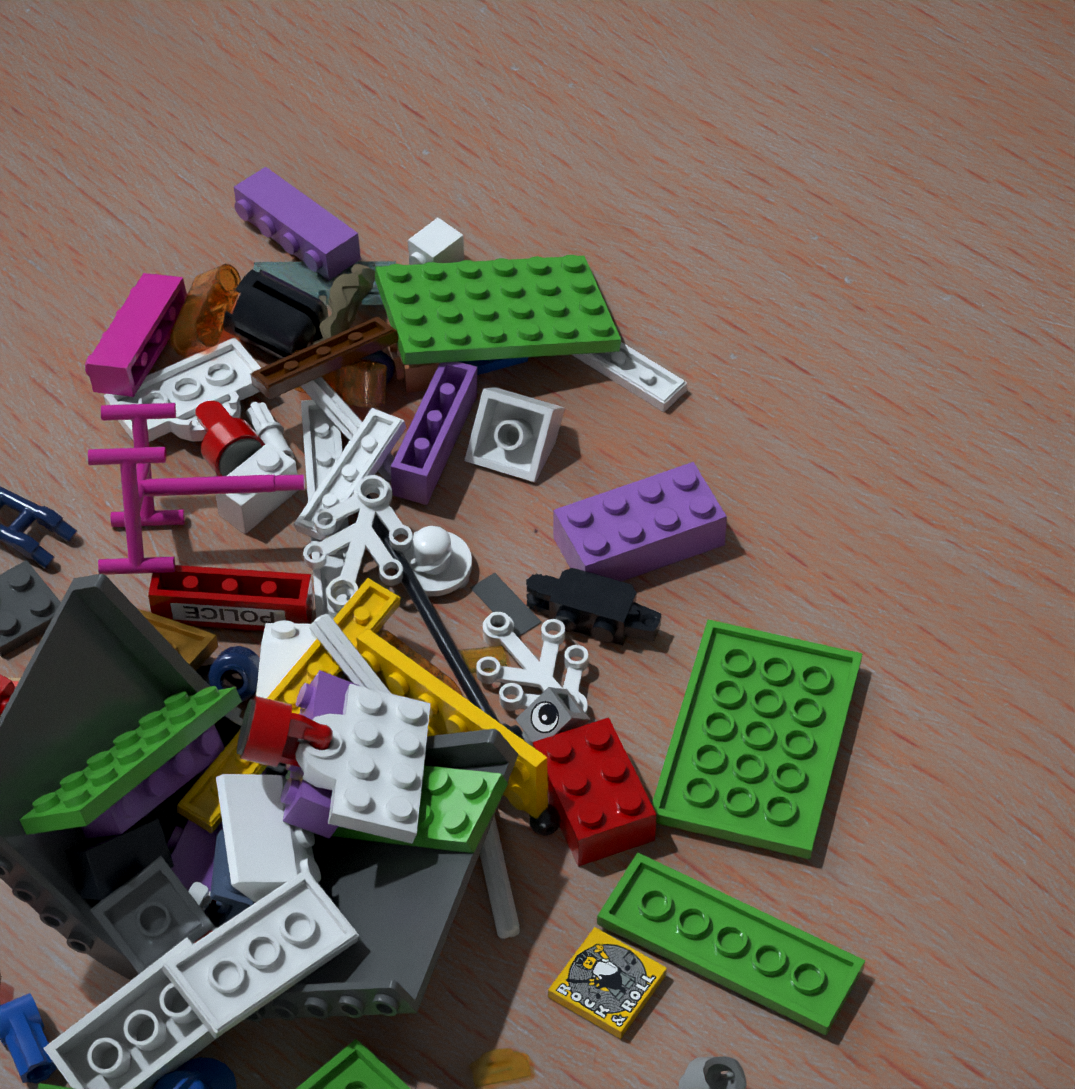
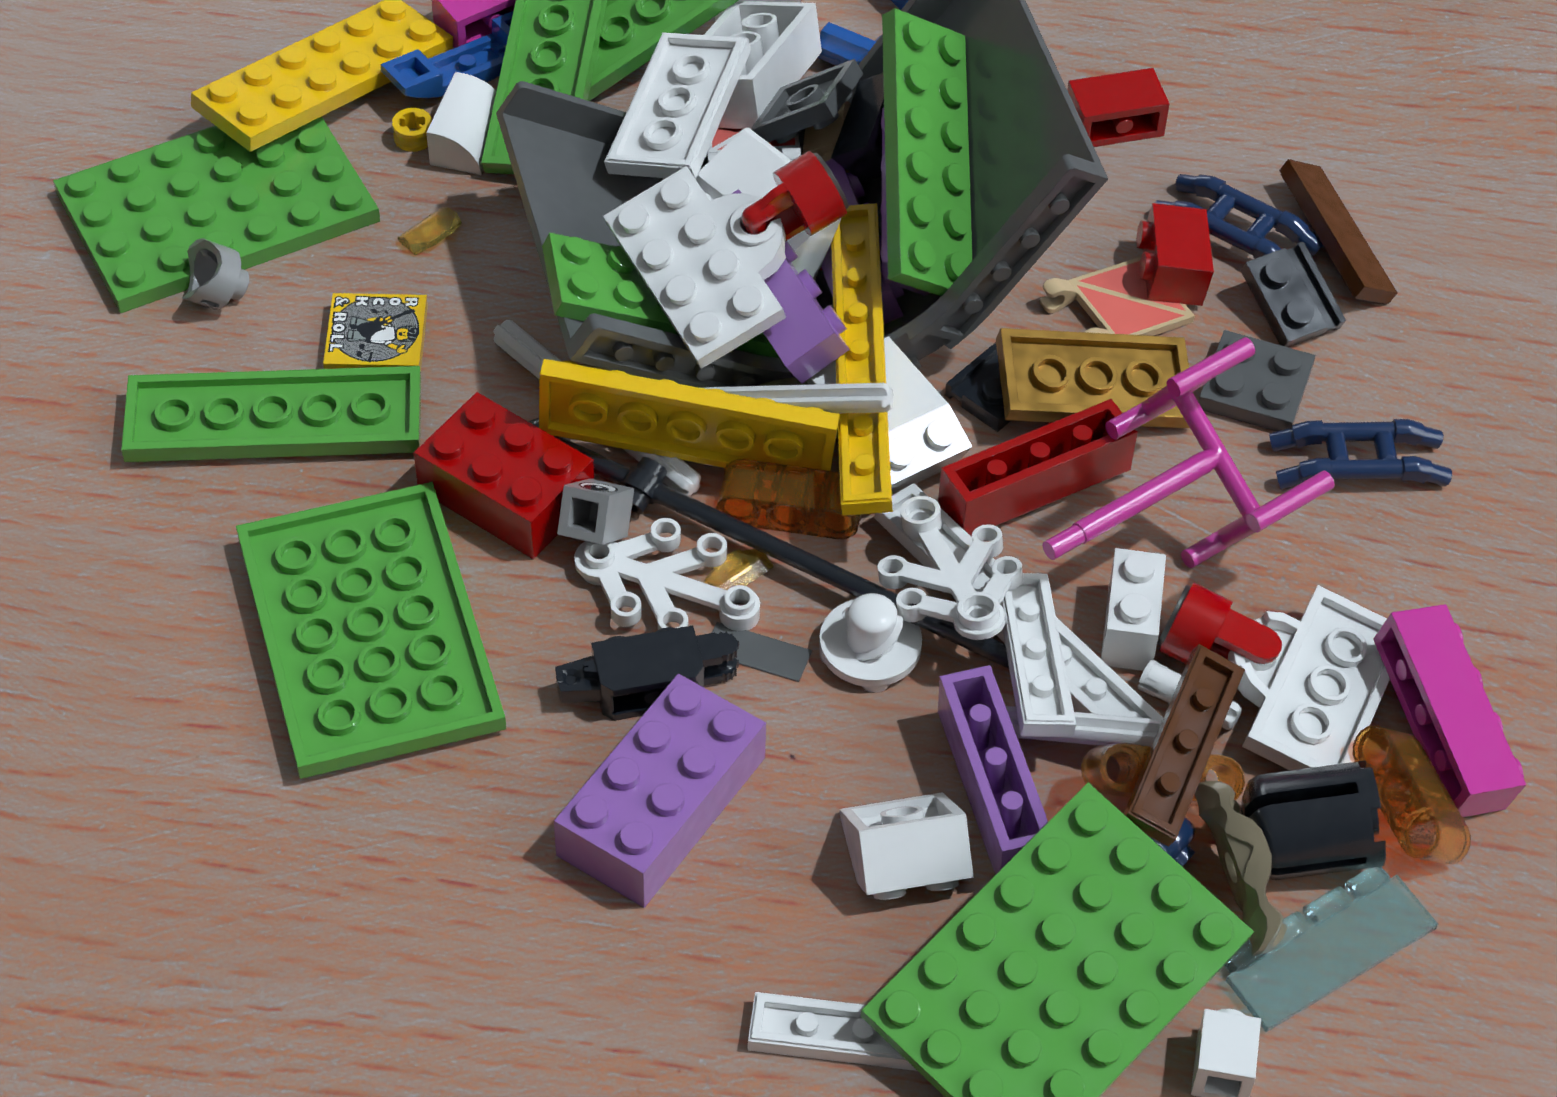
camera: 145 degrees right, 0 degrees up
(233, 661) = (968, 398): dark blue head -> none
(297, 223) = (1434, 986): medium lavender brick -> none

